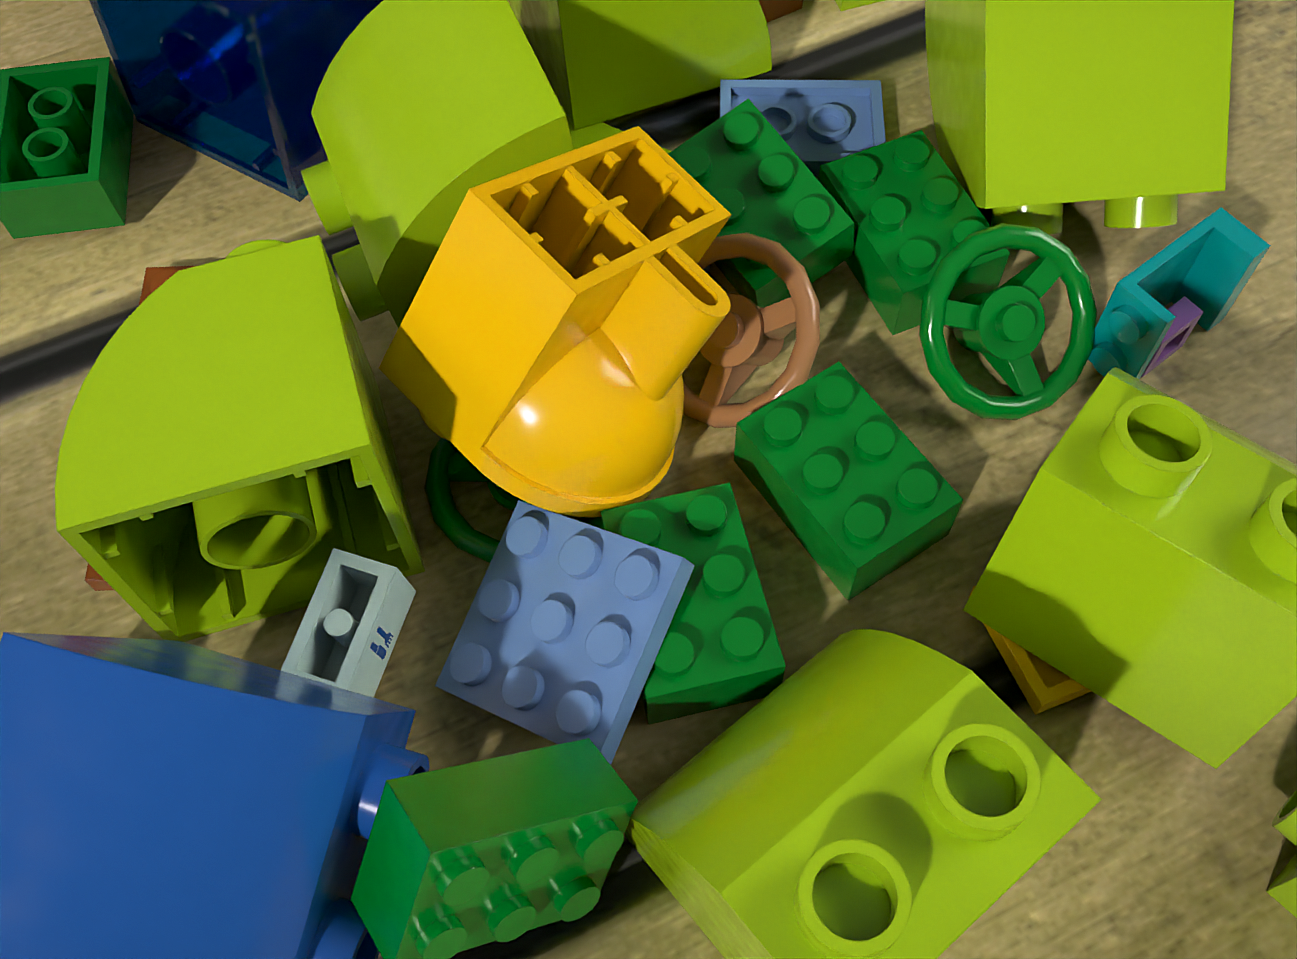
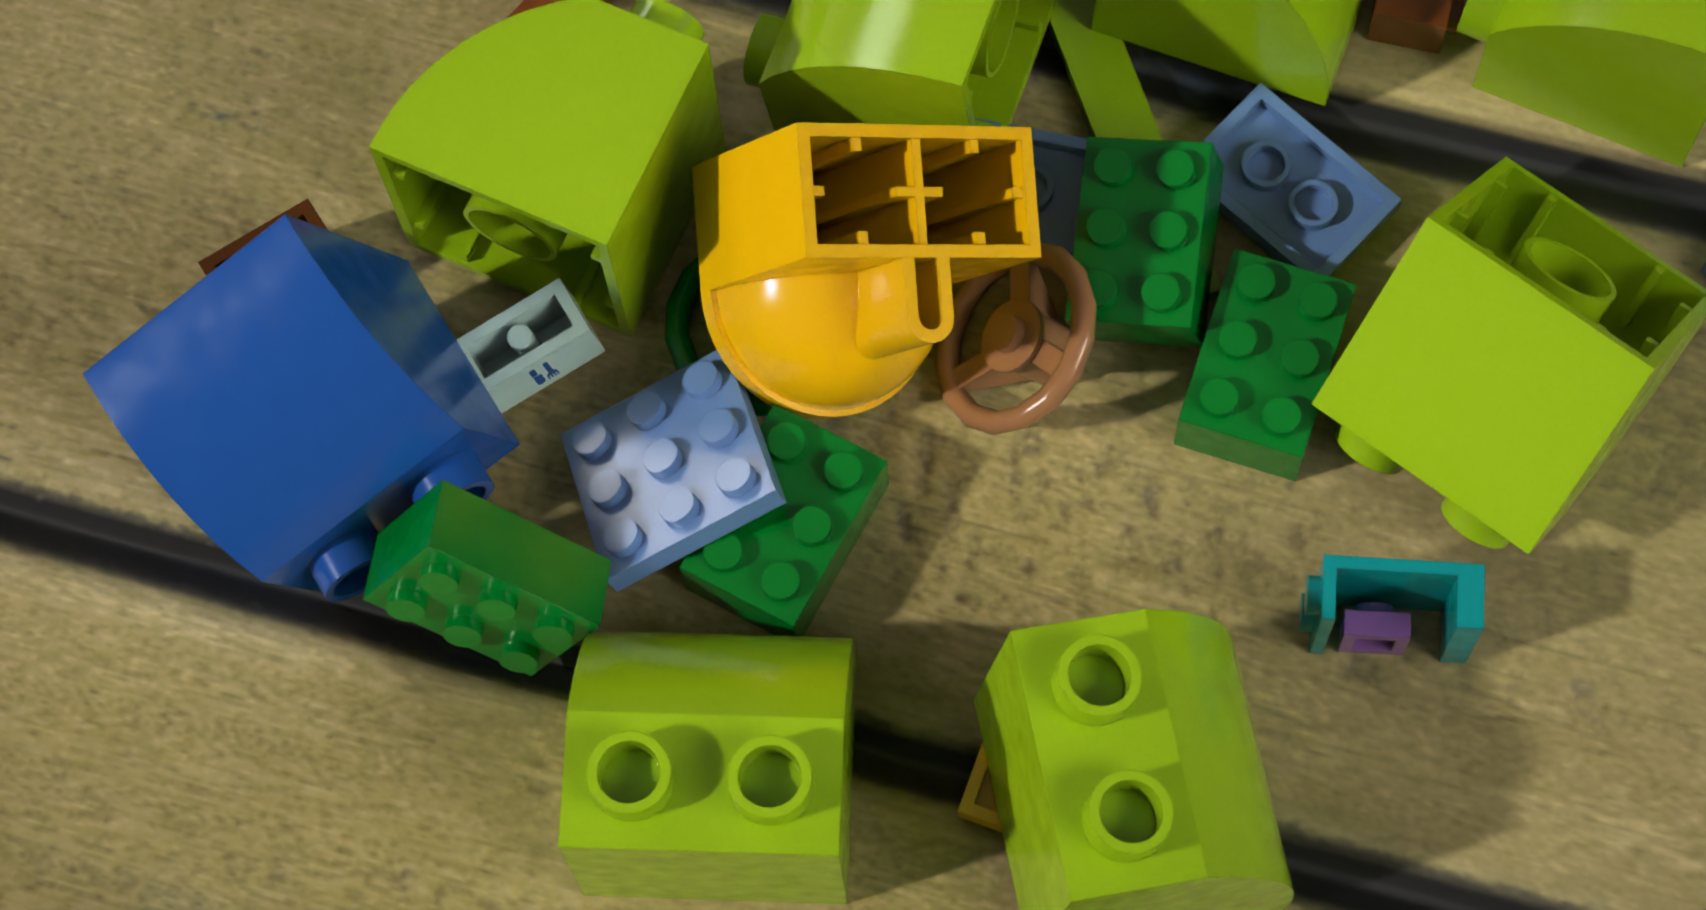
camera: 45 degrees right, 10 degrees up
(845, 479) = (988, 527): green brick -> none
(1007, 322) = (1240, 510): green piece -> none

